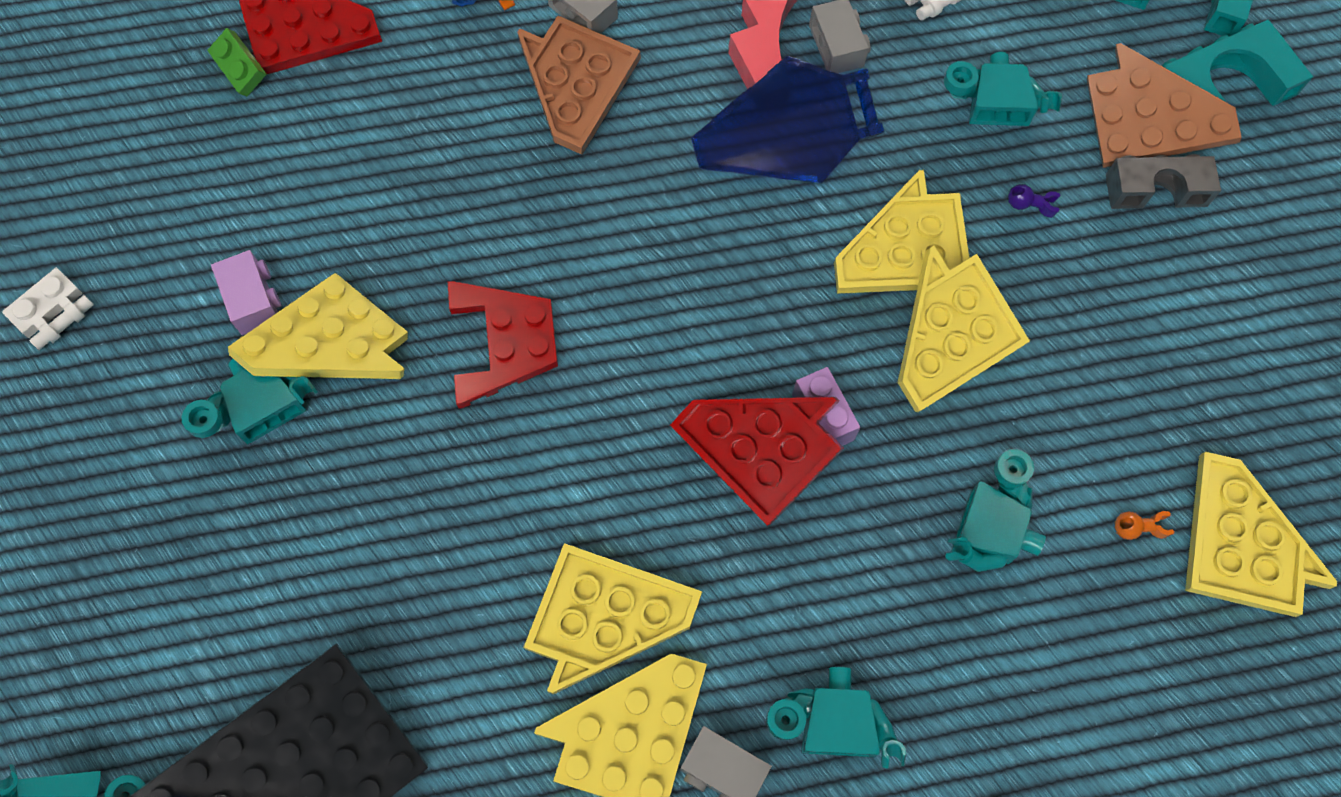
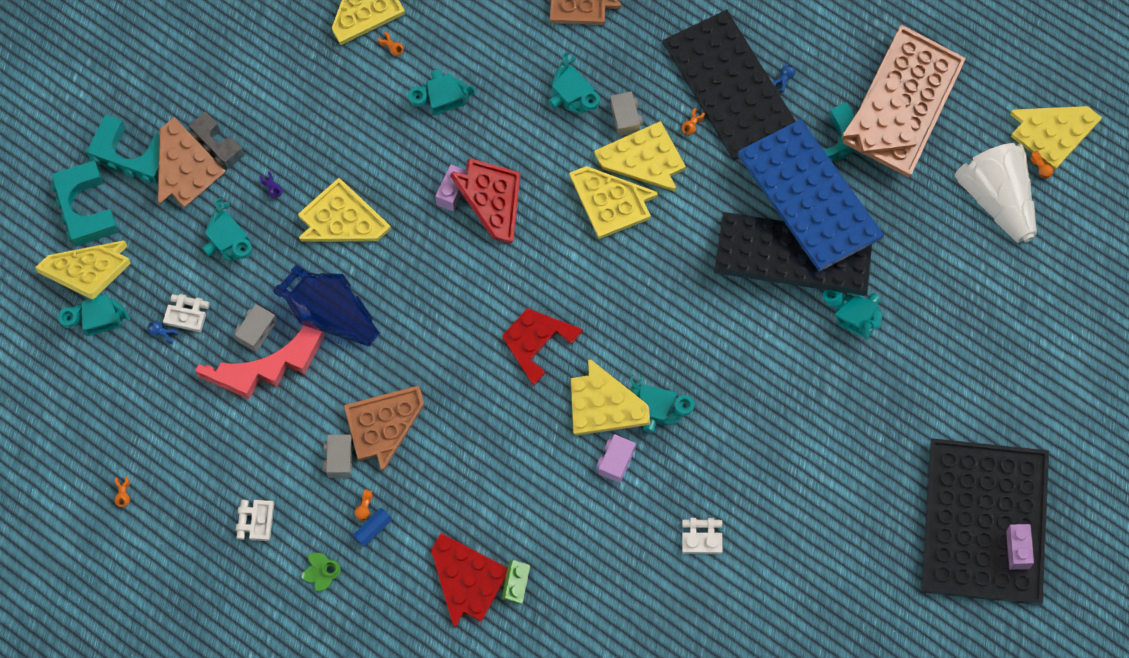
camera: 130 degrees left, 0 degrees up
(954, 329) = (369, 165): light yellow wing -> none

